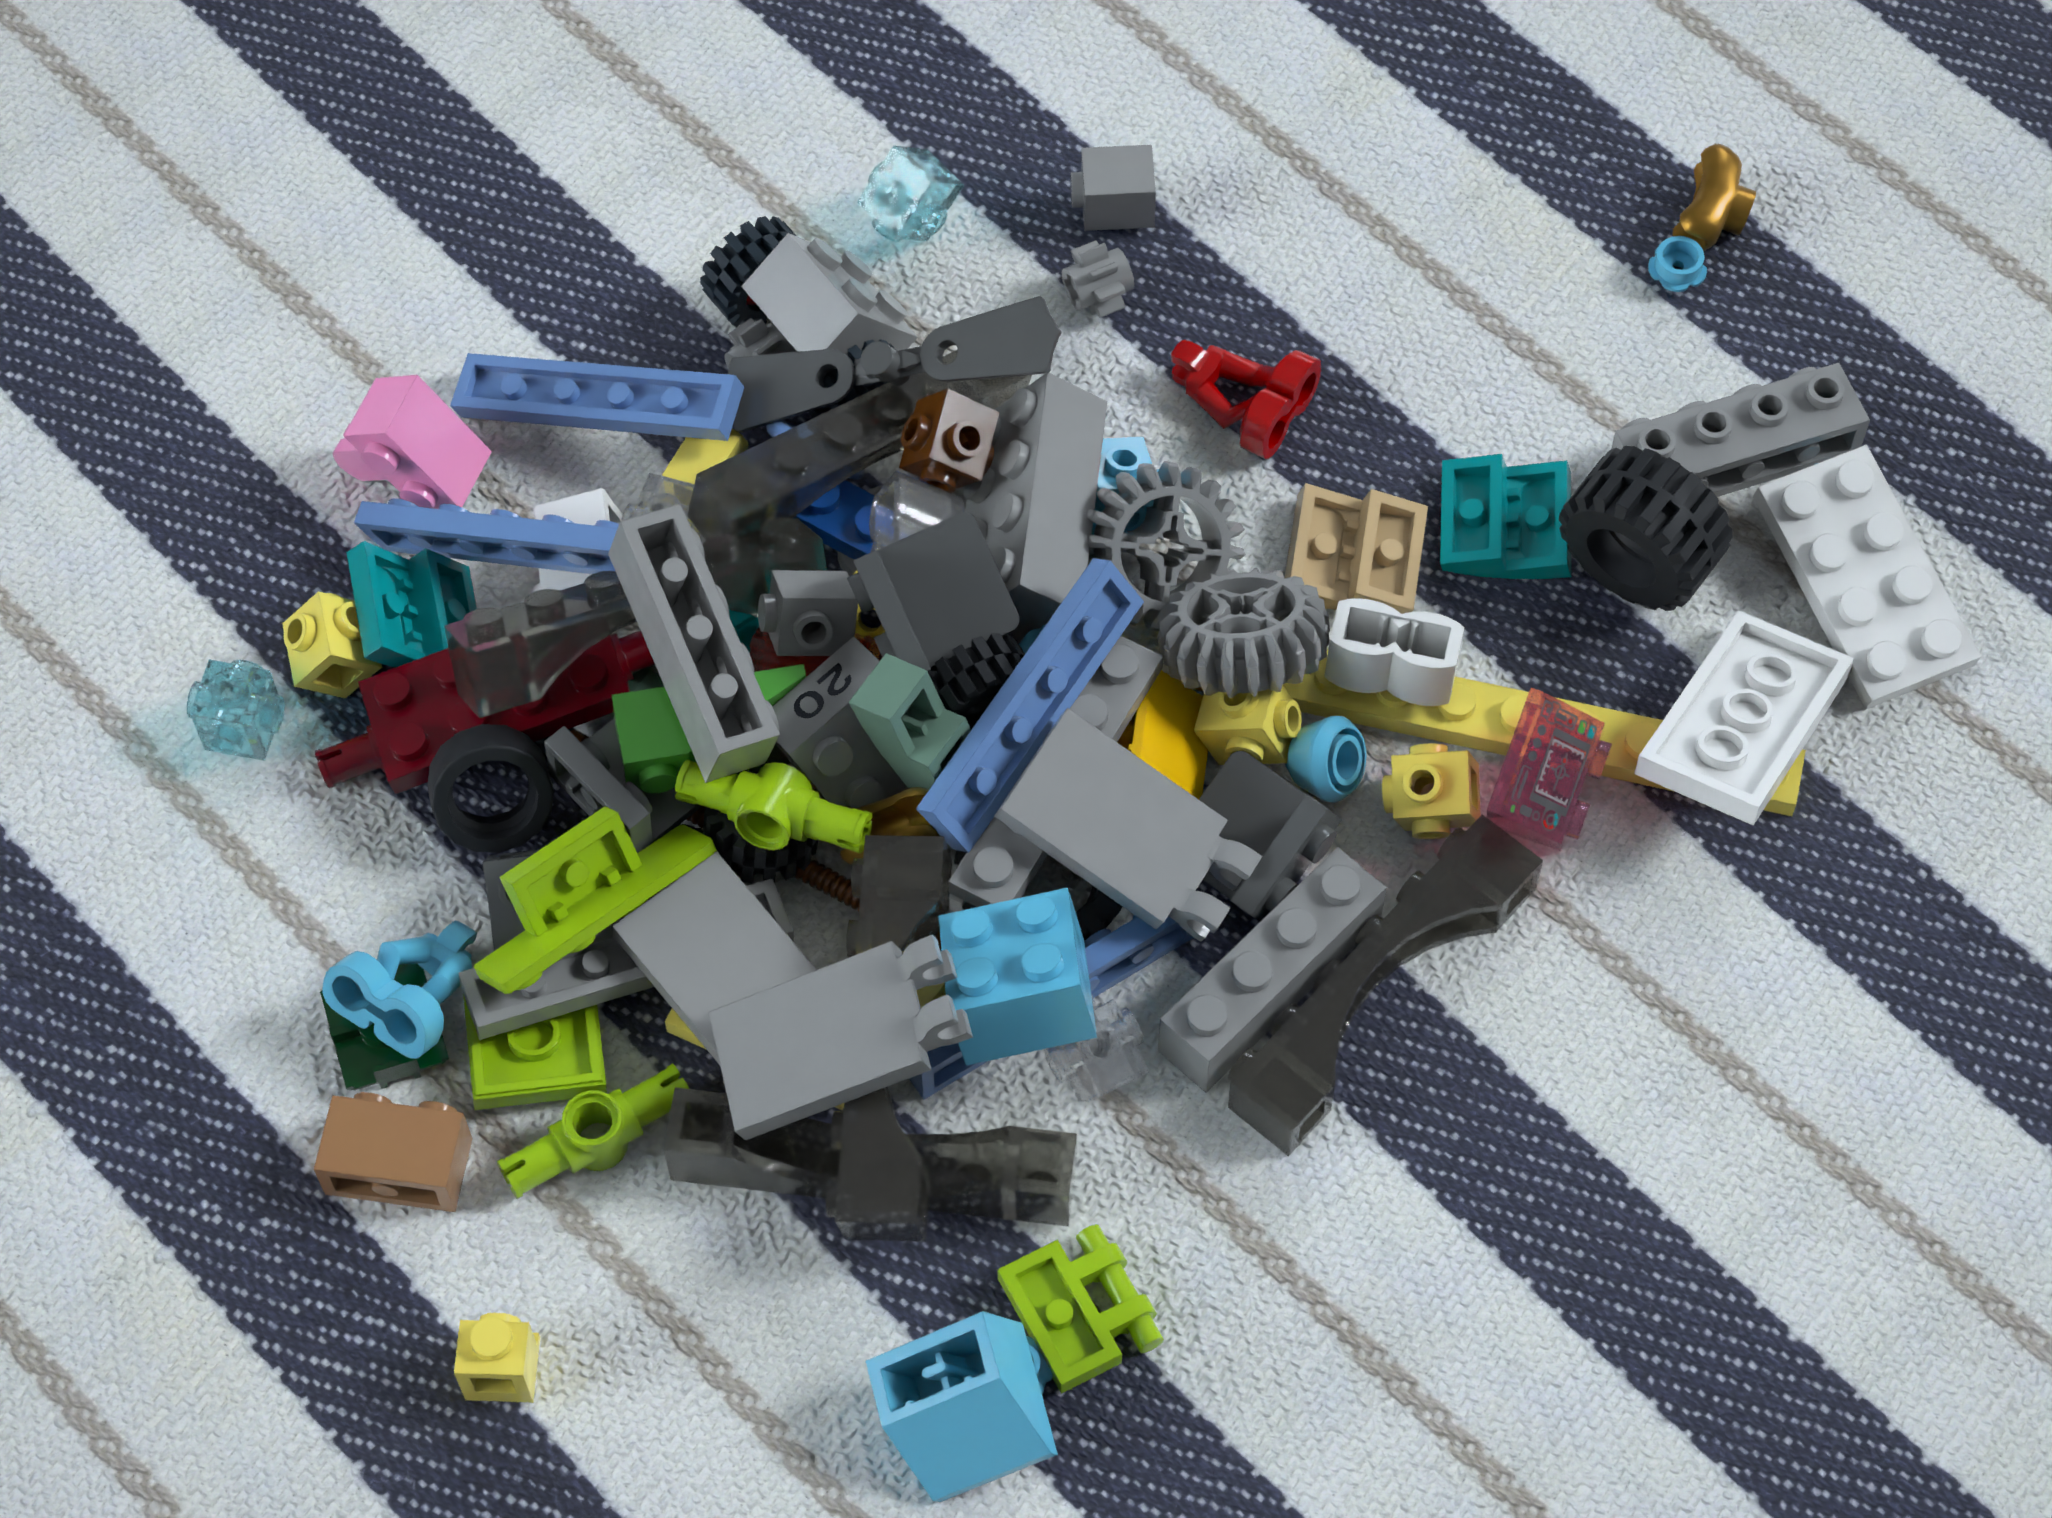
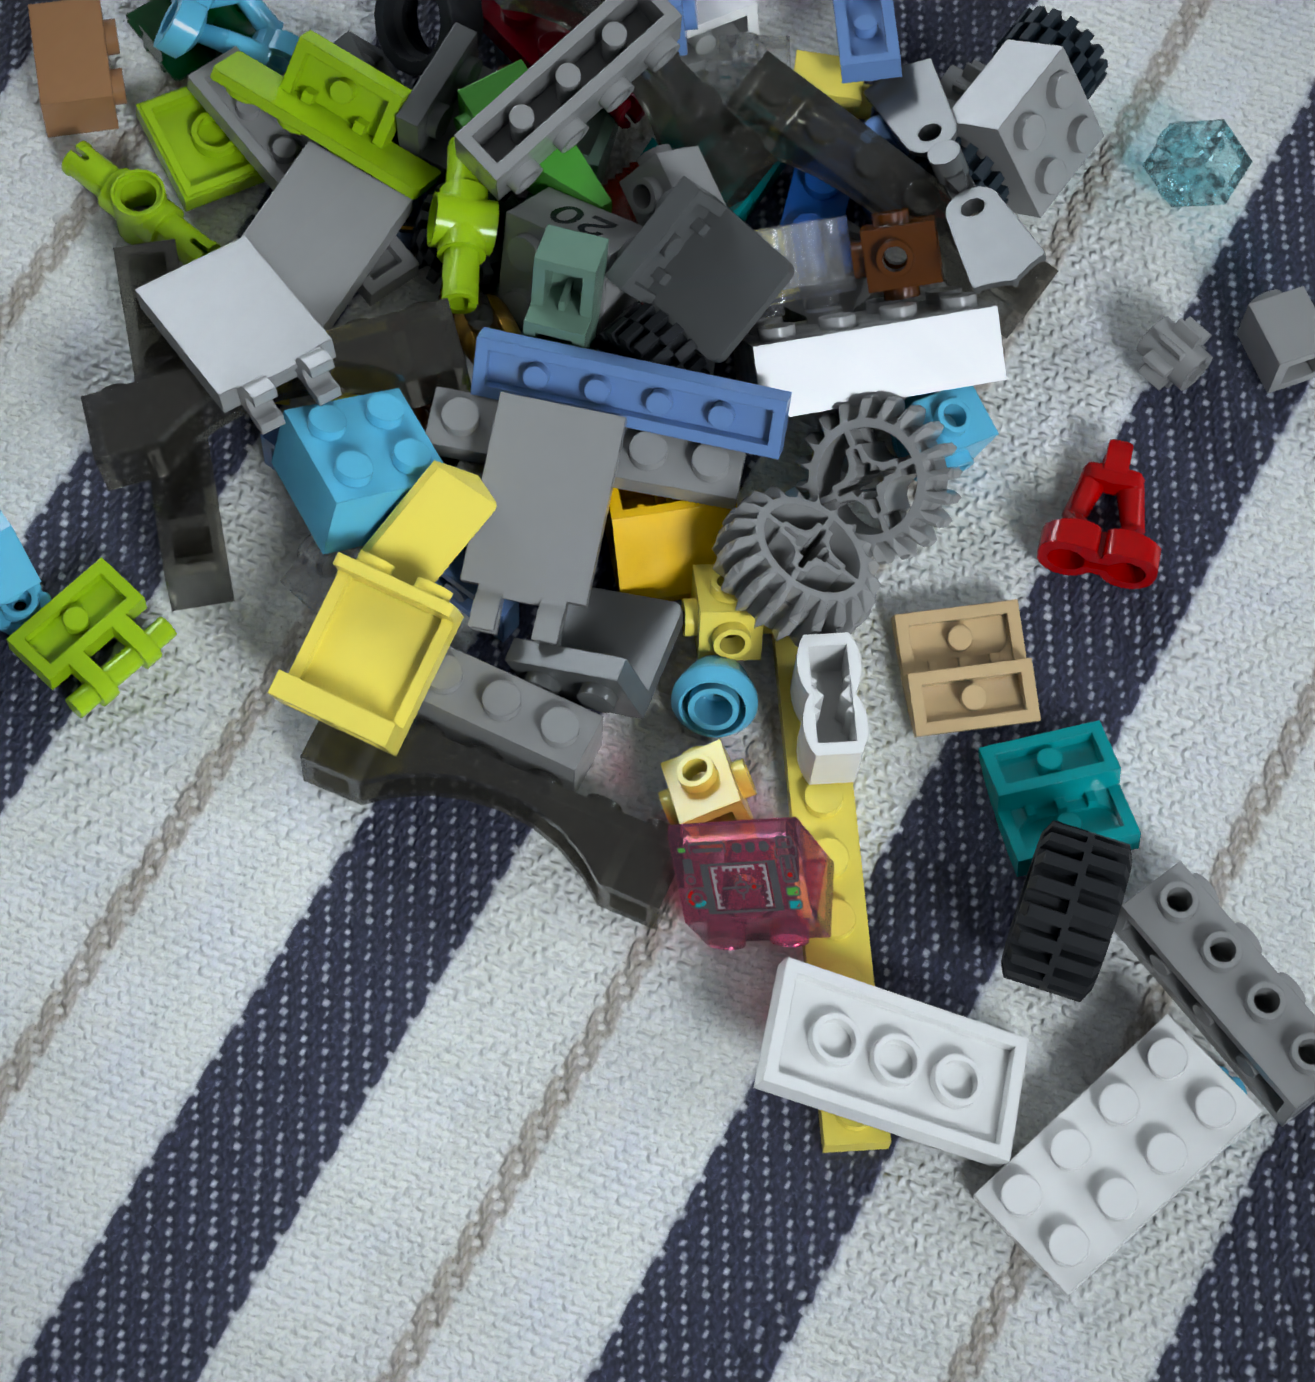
camera: 65 degrees right, 5 degrees up
(1108, 927) = (432, 523): none -> light yellow slope
(1220, 1023) = (370, 652): none -> light yellow panel

